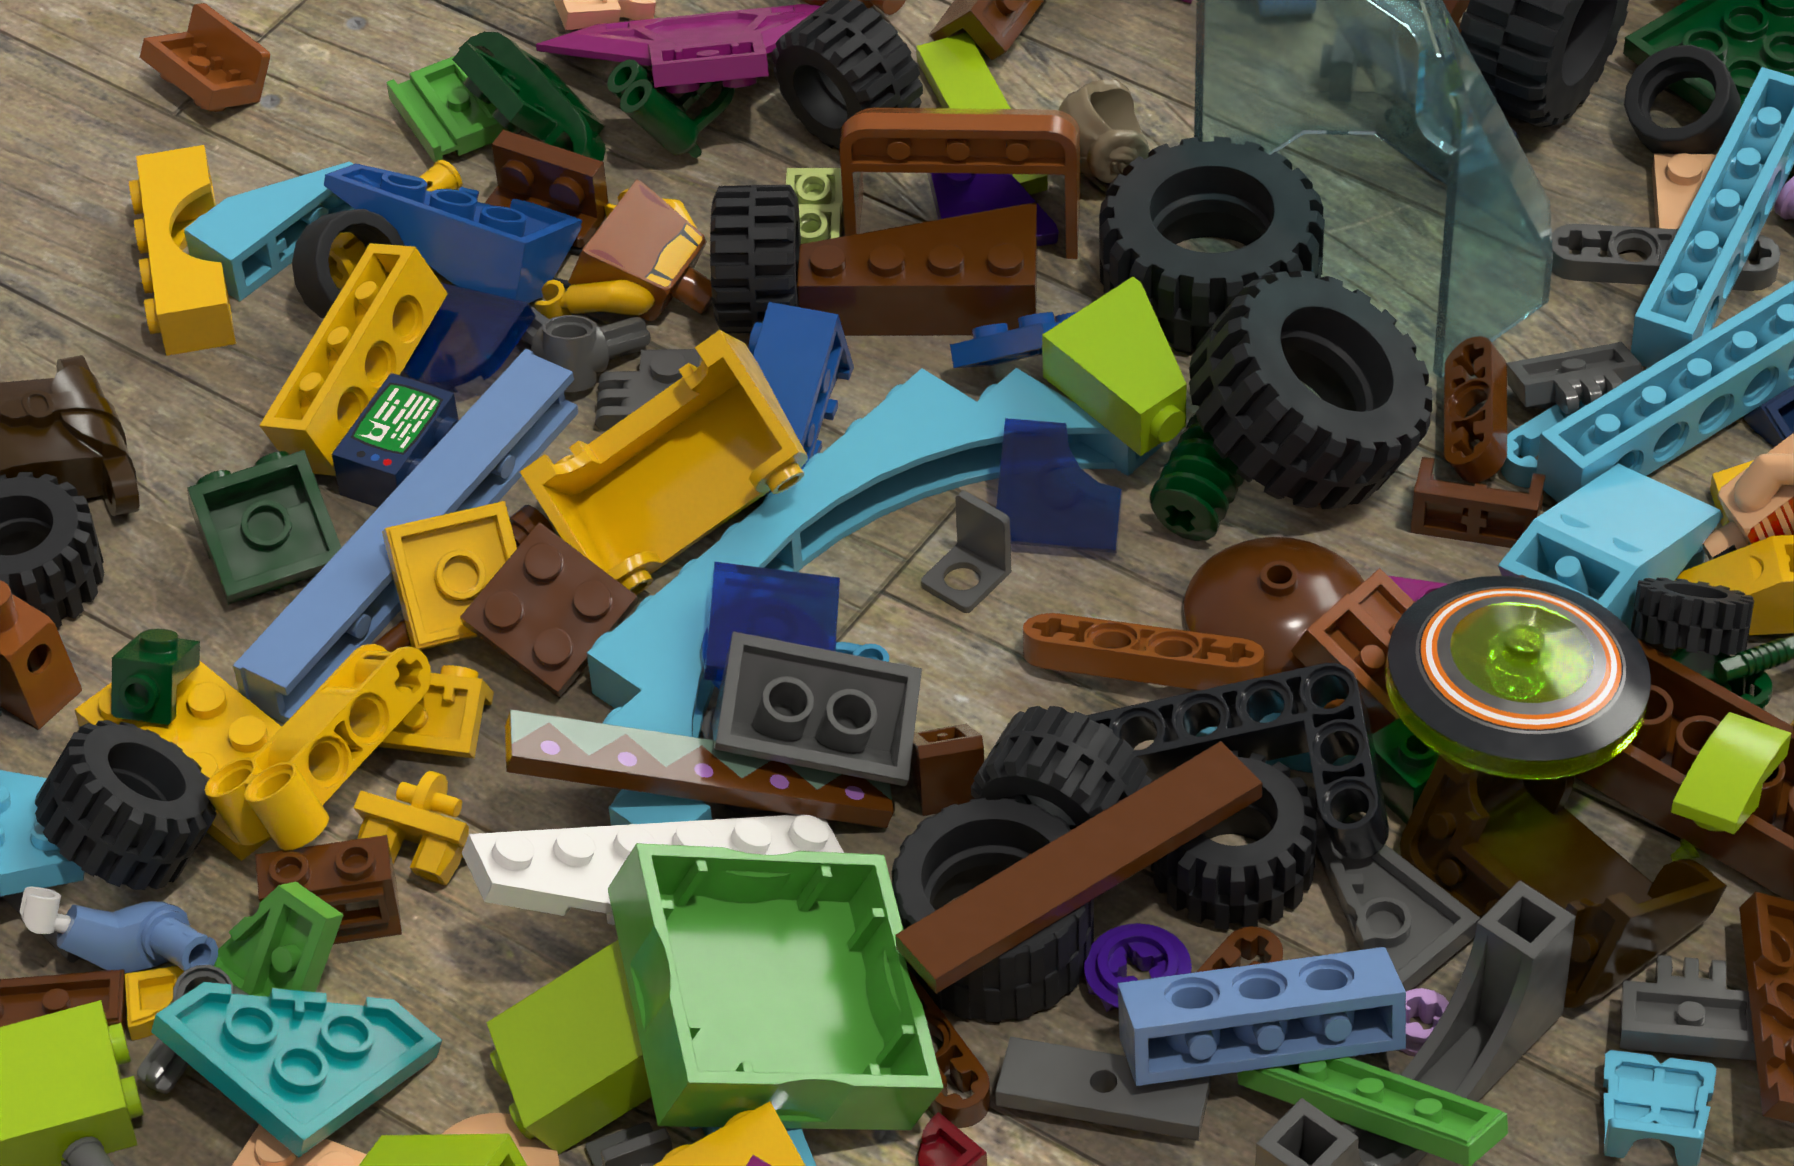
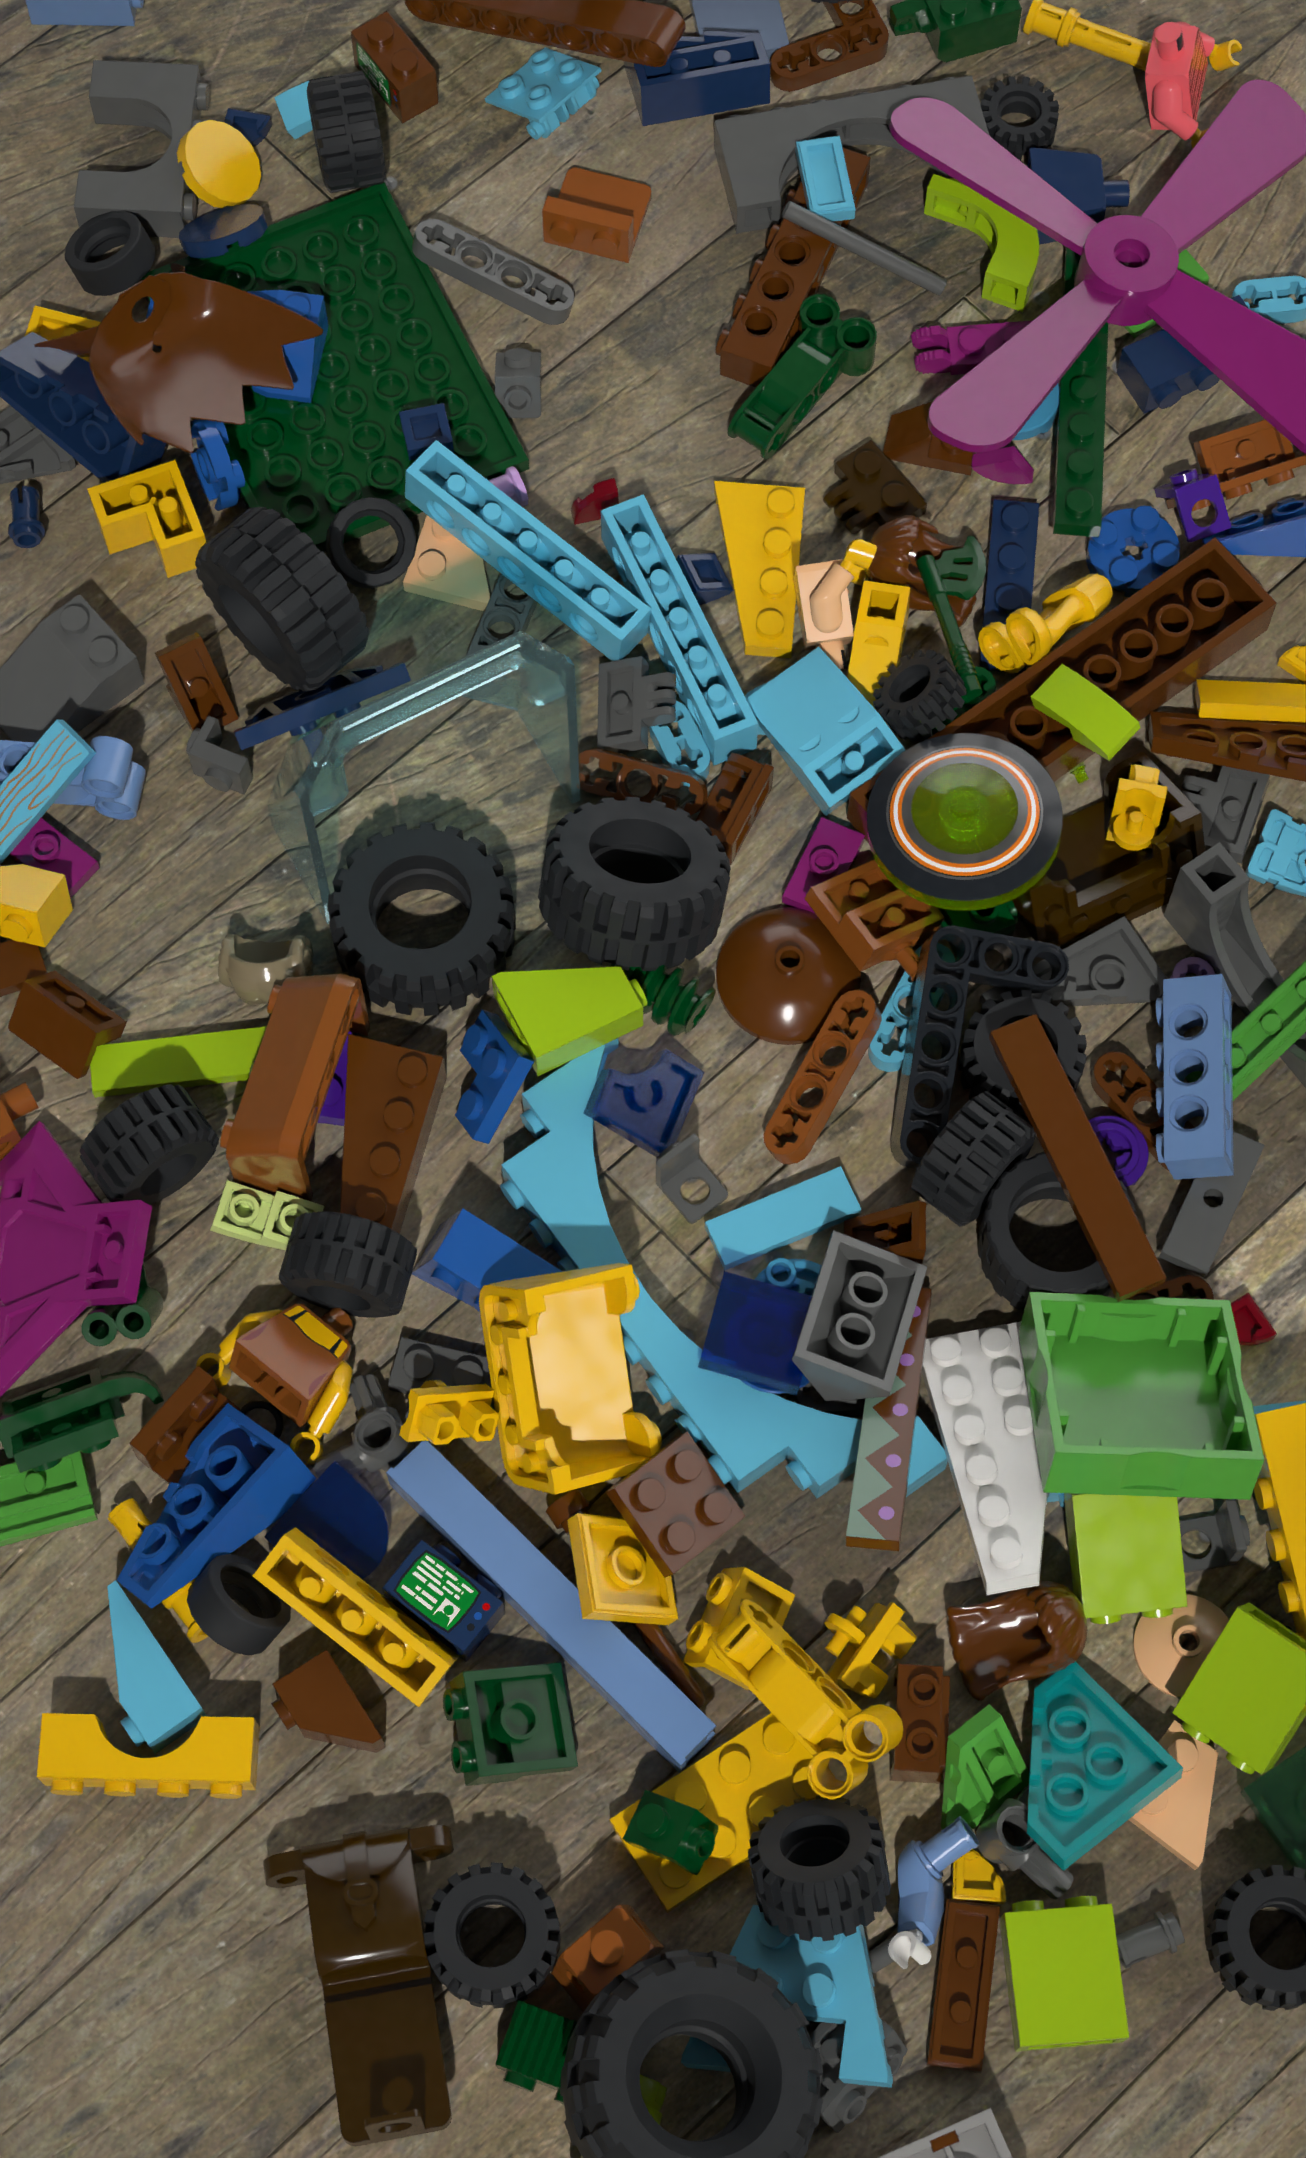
camera: 80 degrees left, 20 degrees up
(252, 372) = (325, 1706): none -> reddish brown slope
(457, 972) = (1016, 1636): none -> reddish brown piece
(602, 376) = (449, 1412): none -> yellow hips
(950, 660) = (782, 1218): none -> medium azure tile
(1634, 867) = (1137, 809): none -> yellow hips

